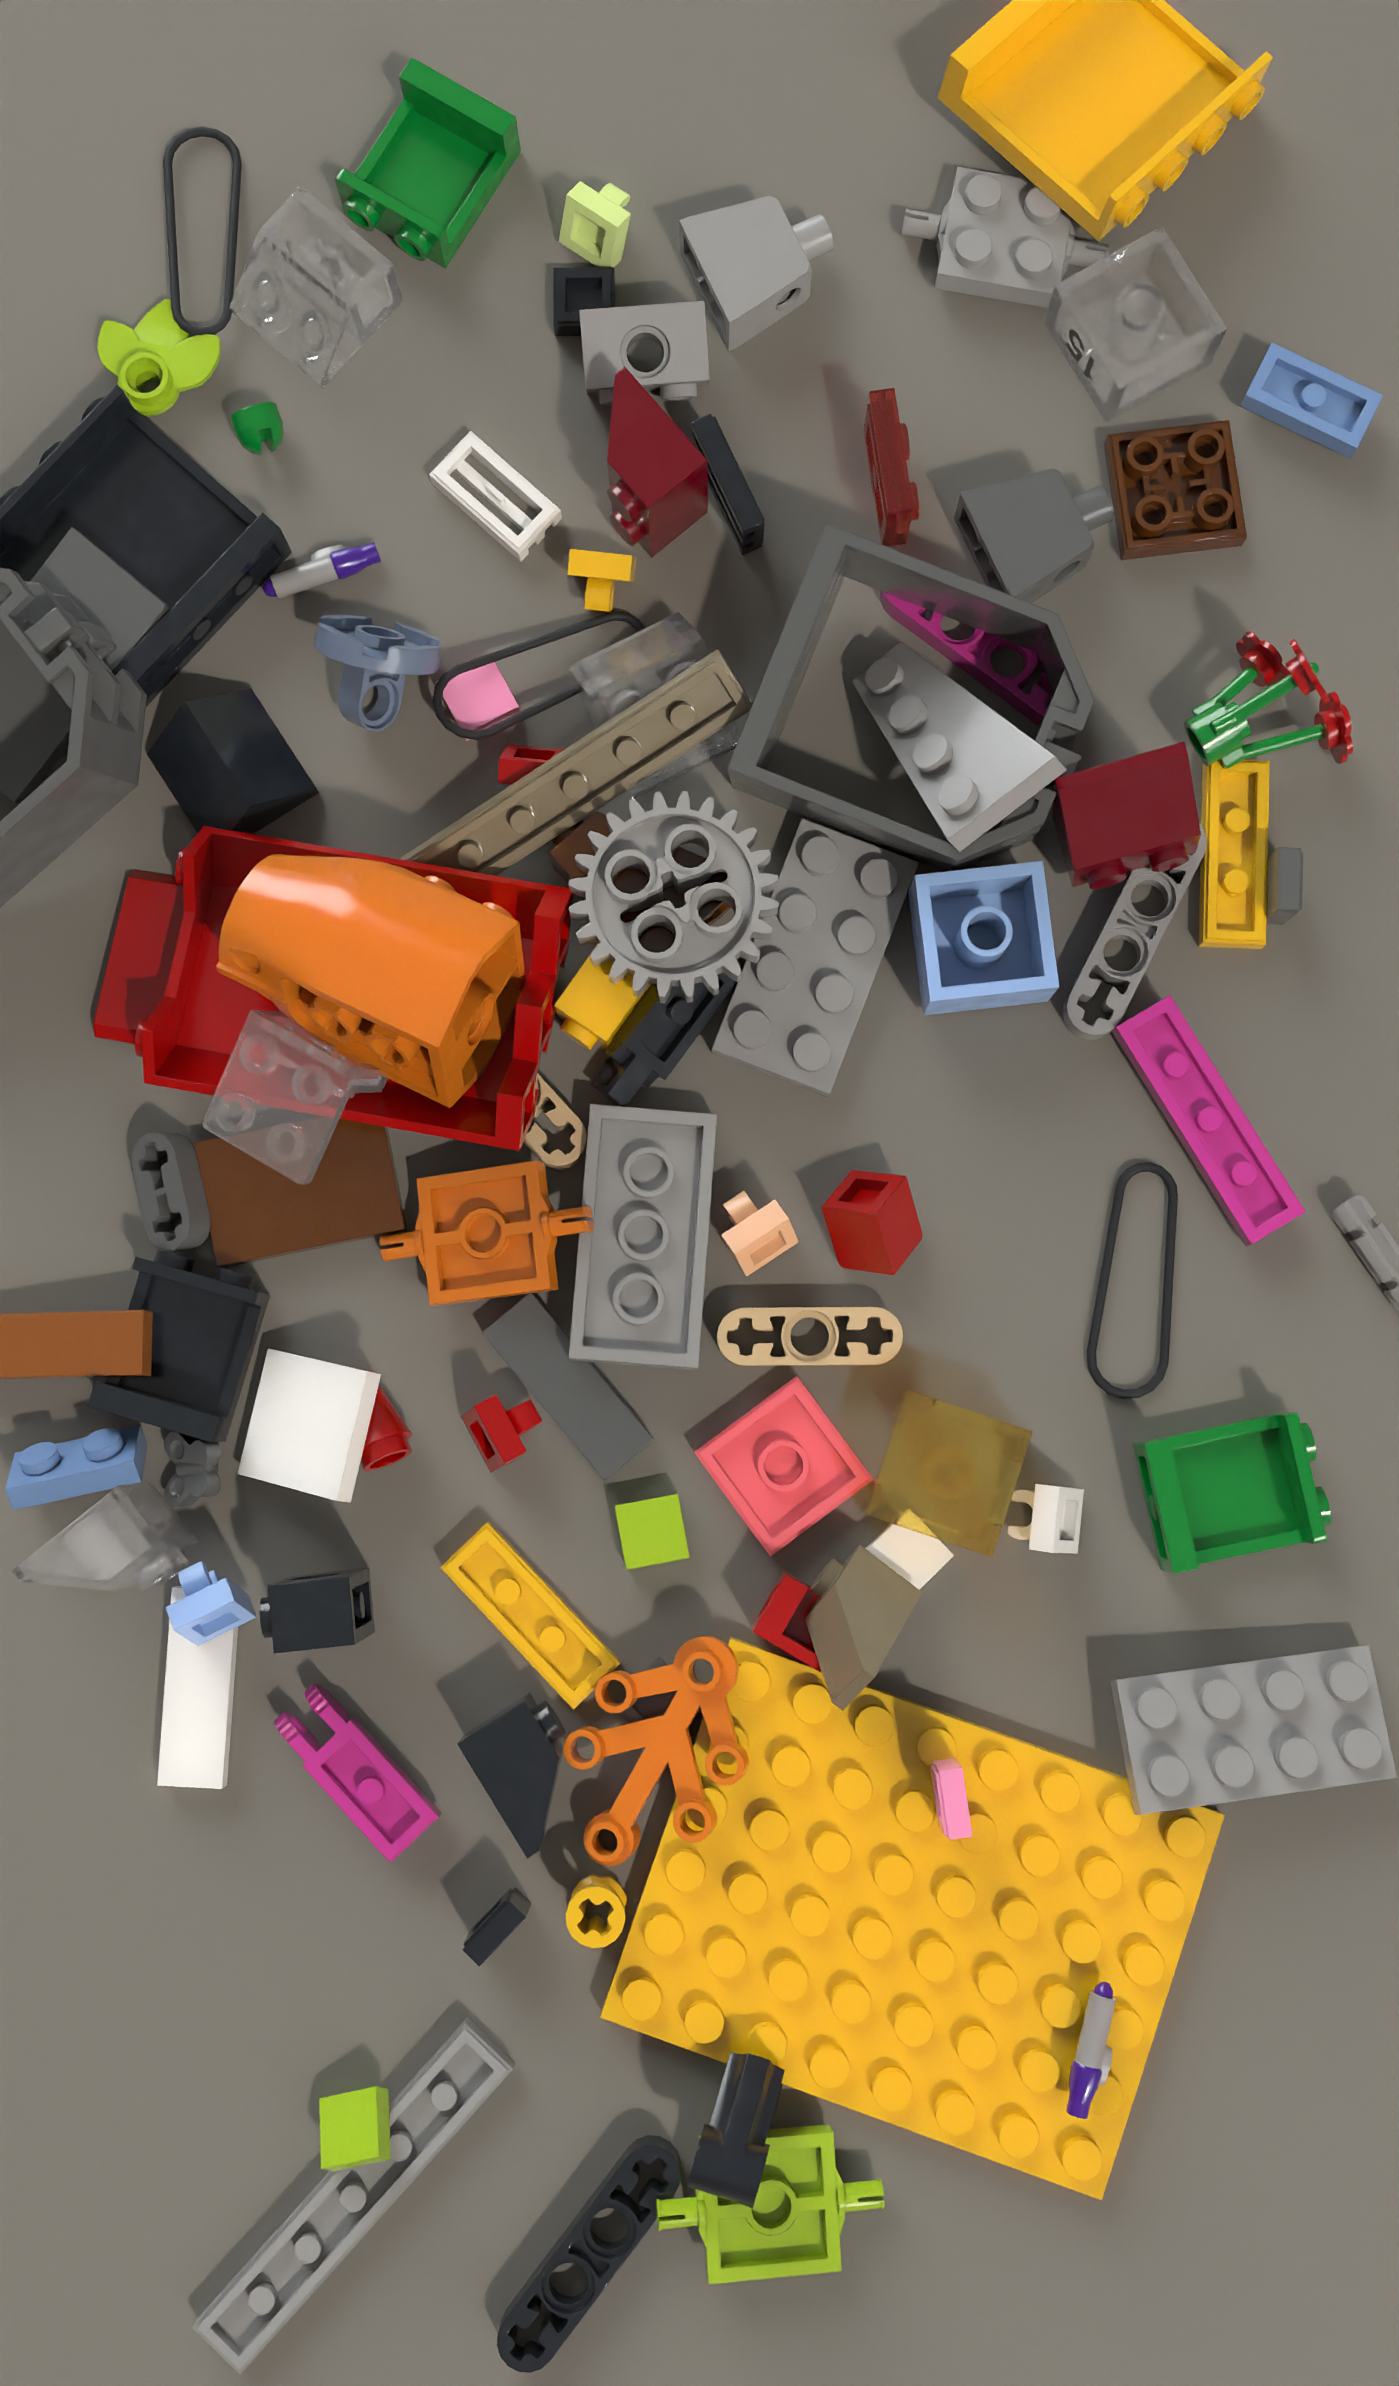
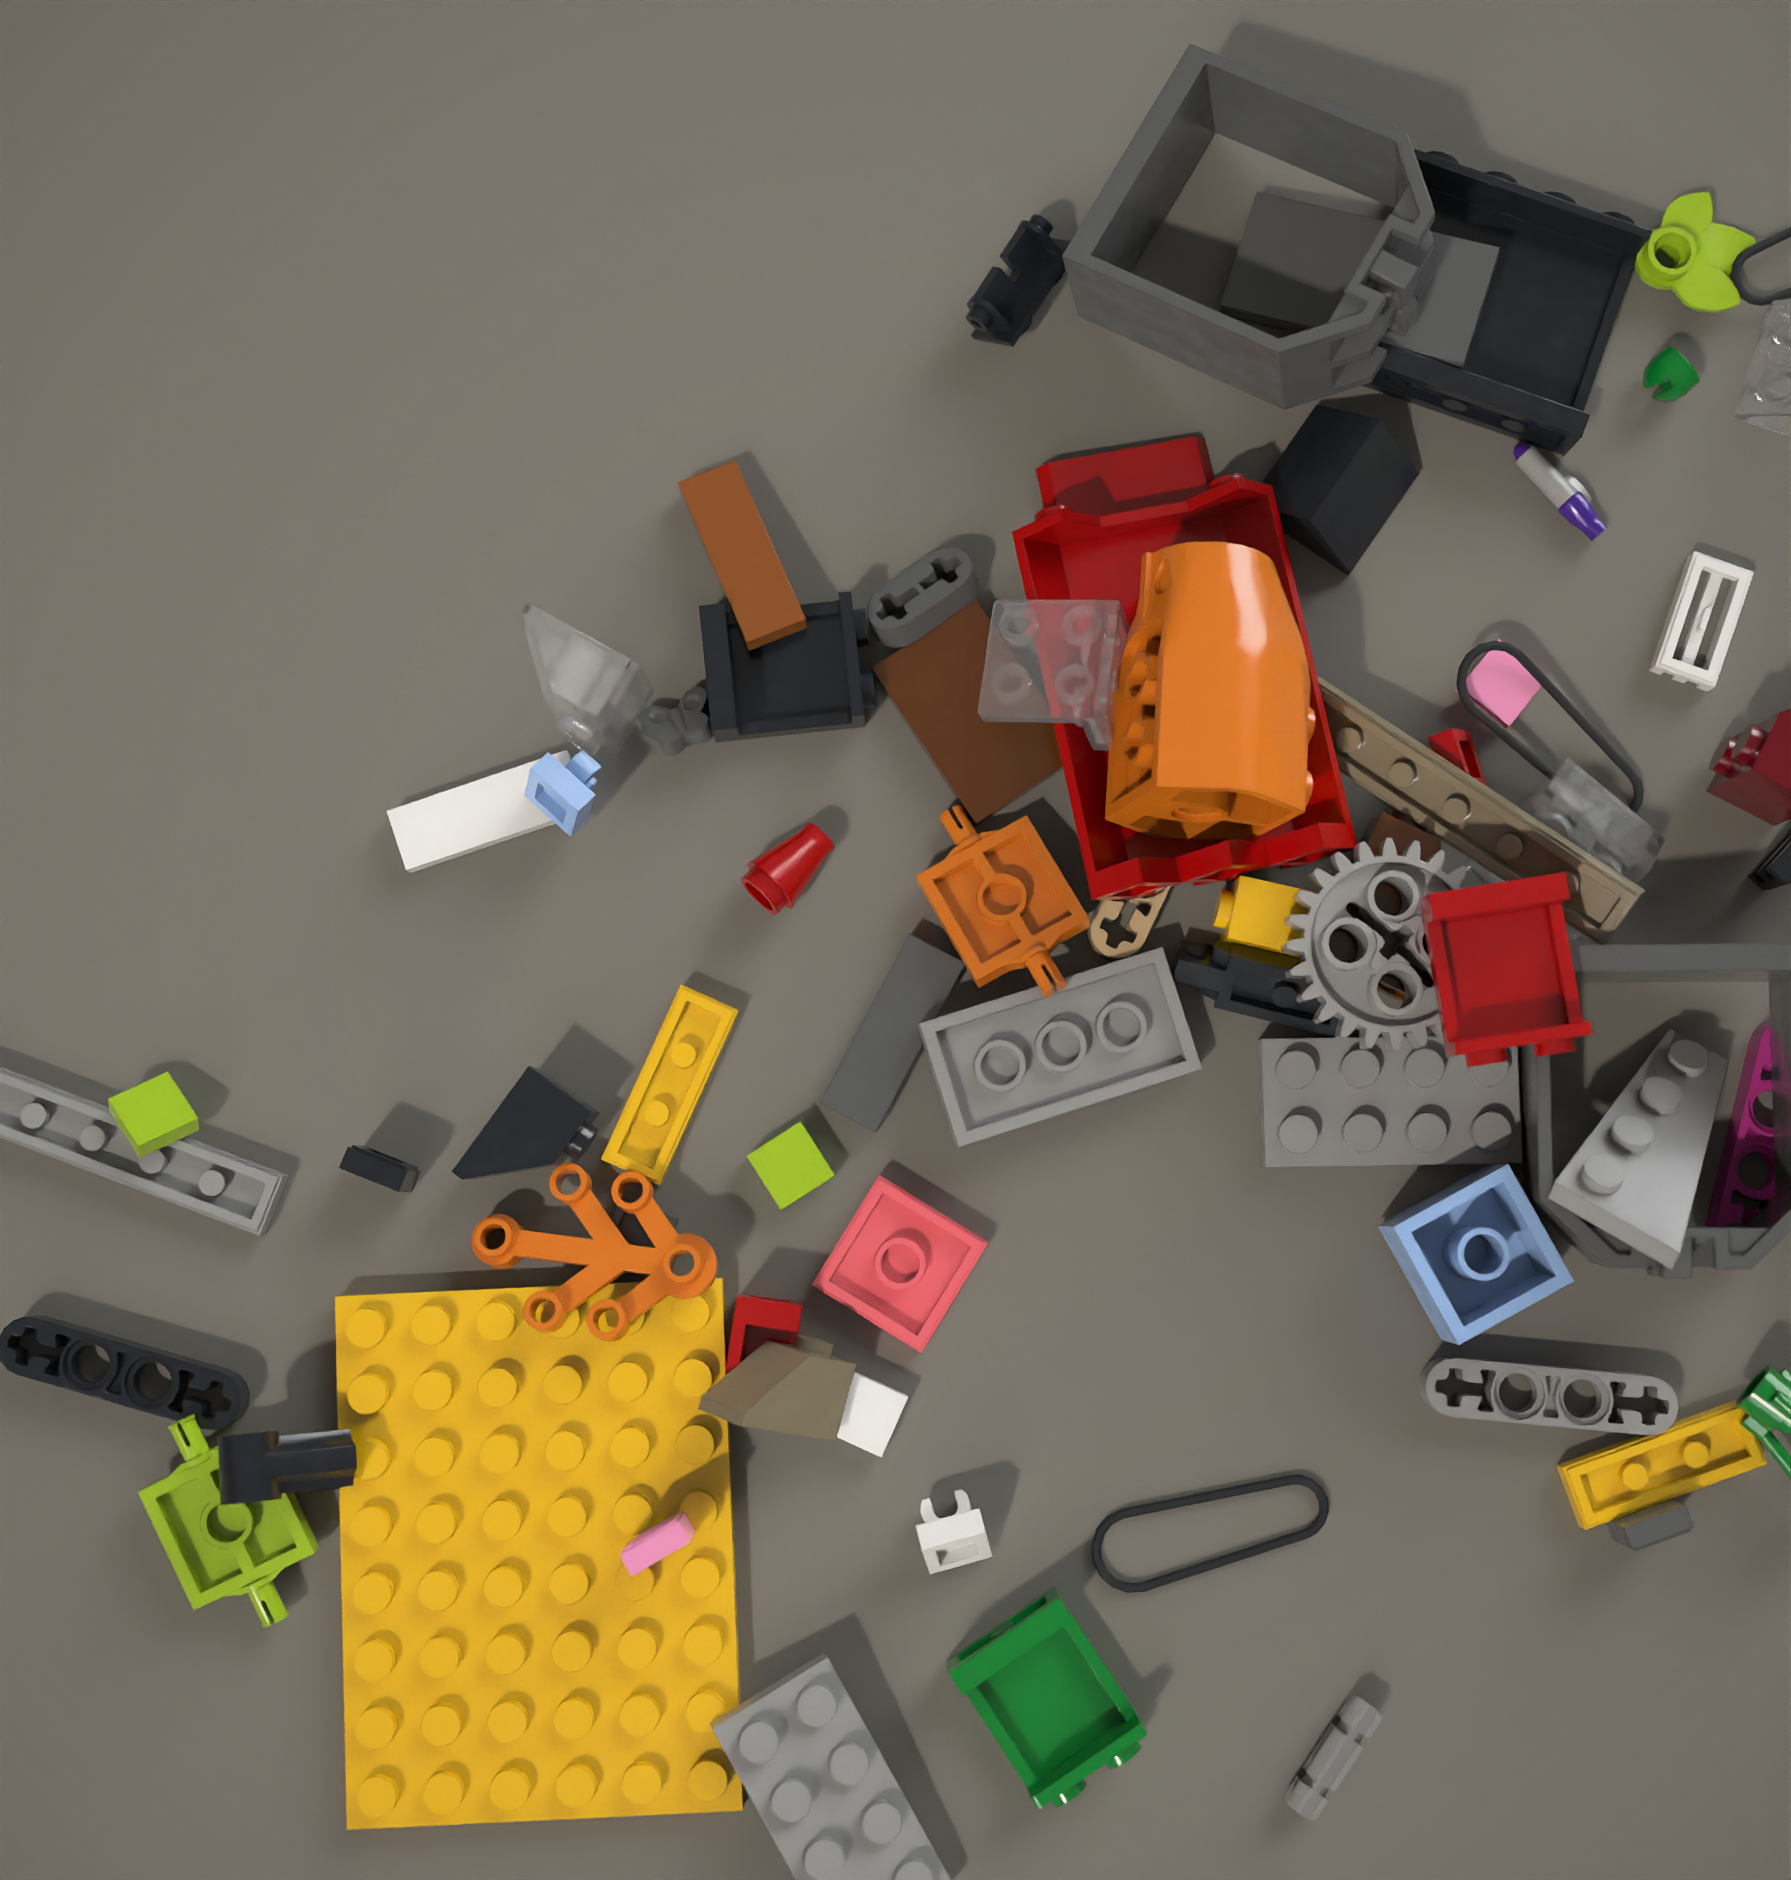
camera: 65 degrees right, 0 degrees up
(76, 1467) = (640, 619): medium blue plate -> none
(309, 1425) = (762, 812): white tile -> none
(318, 1610) = (598, 890): black brick -> none
(360, 1776) = (465, 990): dark pink hinge -> none
(374, 658) = (1496, 575): sand blue tile -> none
(498, 1431) = (825, 987): red tile -> none
(596, 1932) = (409, 1260): yellow bush -> none
(601, 572) = (1672, 751): yellow tile -> none
(736, 804) = (1503, 968): none -> red panel
(757, 1234) = (1105, 1151): light nougat tile -> none
(857, 1321) = (1062, 1278): tan beam -> none
(872, 1222) = (1161, 1256): red panel -> none
(947, 1472) = (956, 1420): clear yellow panel -> none
(1092, 2055) = (475, 1769): piece -> none
(1127, 816) = (1651, 1346): dark red slope -> none
(1208, 1121) = (1390, 1540): dark pink plate -> none

